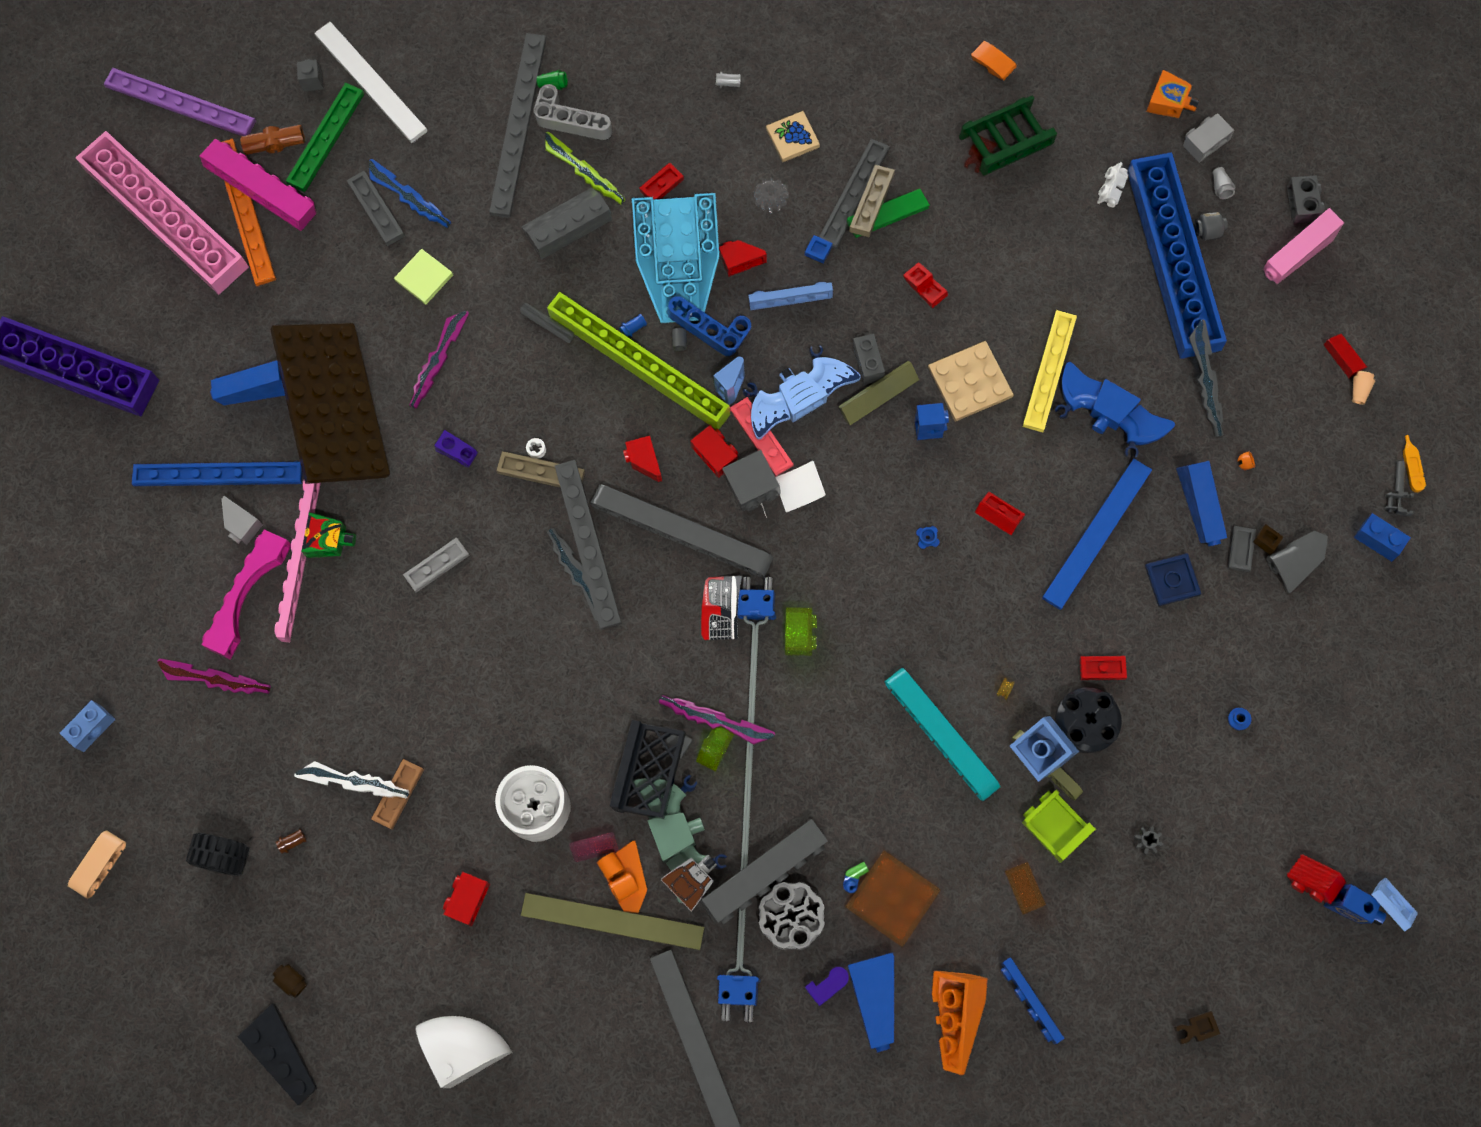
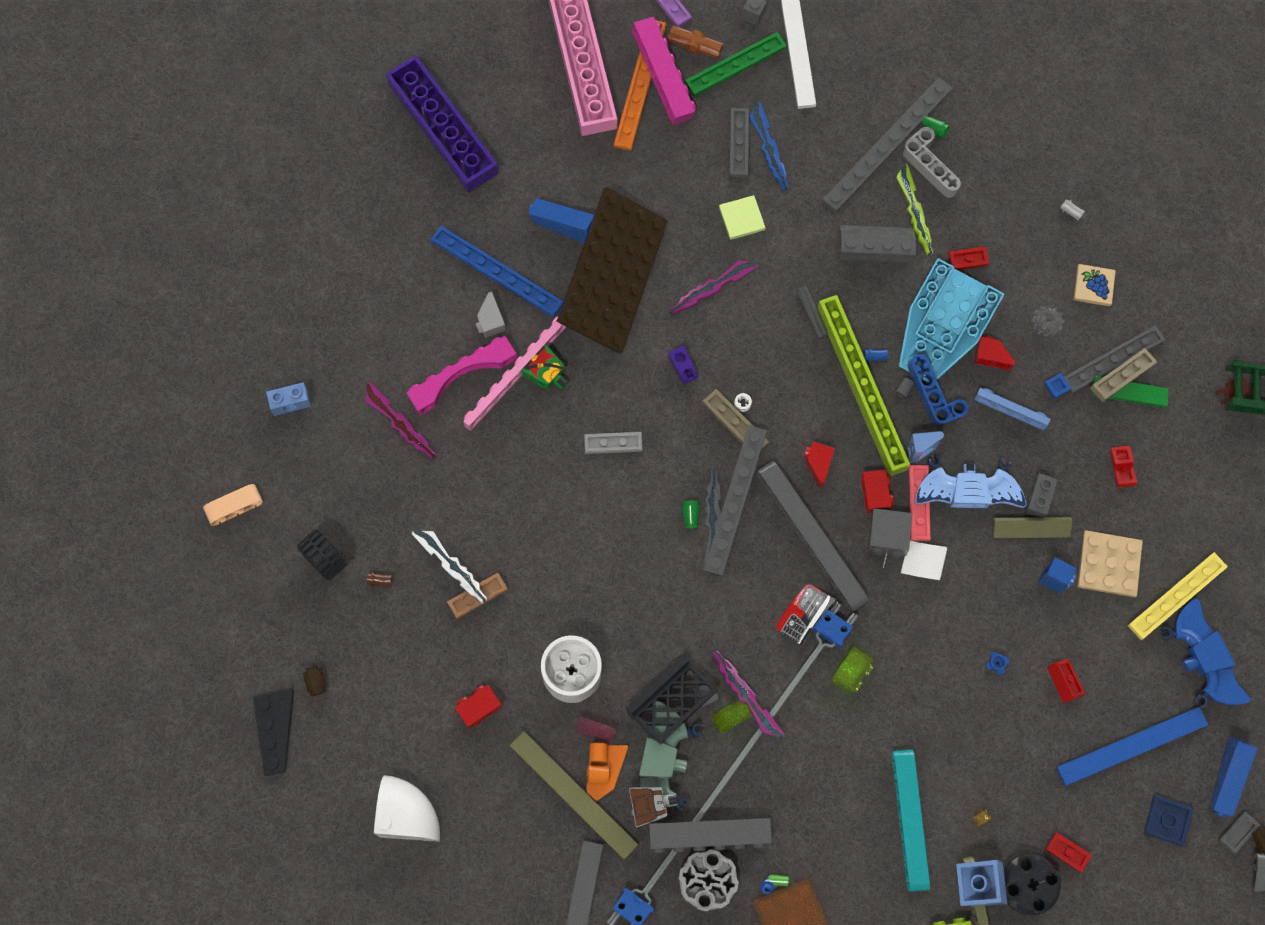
camera: 25 degrees right, 0 degrees up
(553, 583) = (691, 514): none -> green cone

